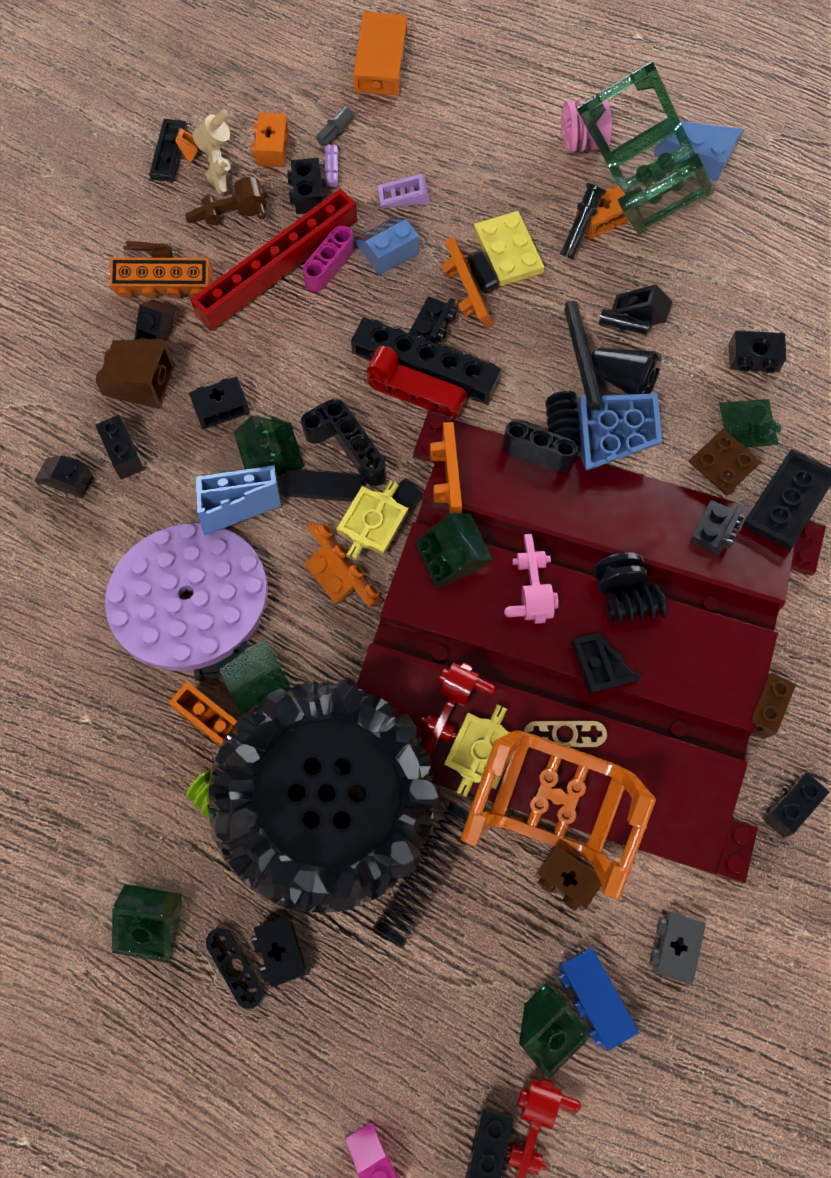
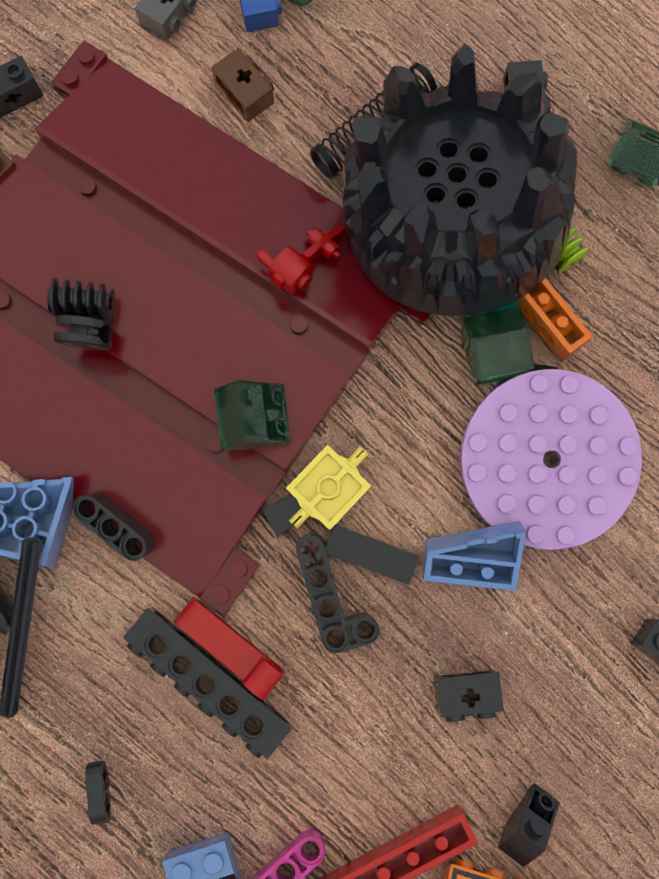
camera: 165 degrees left, 10 degrees up
(119, 447) = (596, 665): black brick -> none
(136, 371) = (562, 764): reddish brown slope -> none
(222, 966) = (572, 84): black beam -> none
(268, 443) = (423, 616): clear green slope -> none
(336, 570) = (384, 444): orange bracket -> none
(433, 320) = (183, 737): black bracket -> none
(446, 452) = (219, 541): orange hinge -> none
(474, 746) = (287, 211): light yellow plate -> none
(475, 301) = (122, 809): orange hinge -> none
(508, 248) = (52, 823): light yellow plate -> none
(537, 599) = (181, 333): bright pink piece -> none
(563, 415) = (75, 555): black piece -> none
(586, 726) = (195, 191): tan beam -> none
(601, 665) = (141, 252): black wing -> none
(611, 875) = (276, 152): orange windscreen -> none

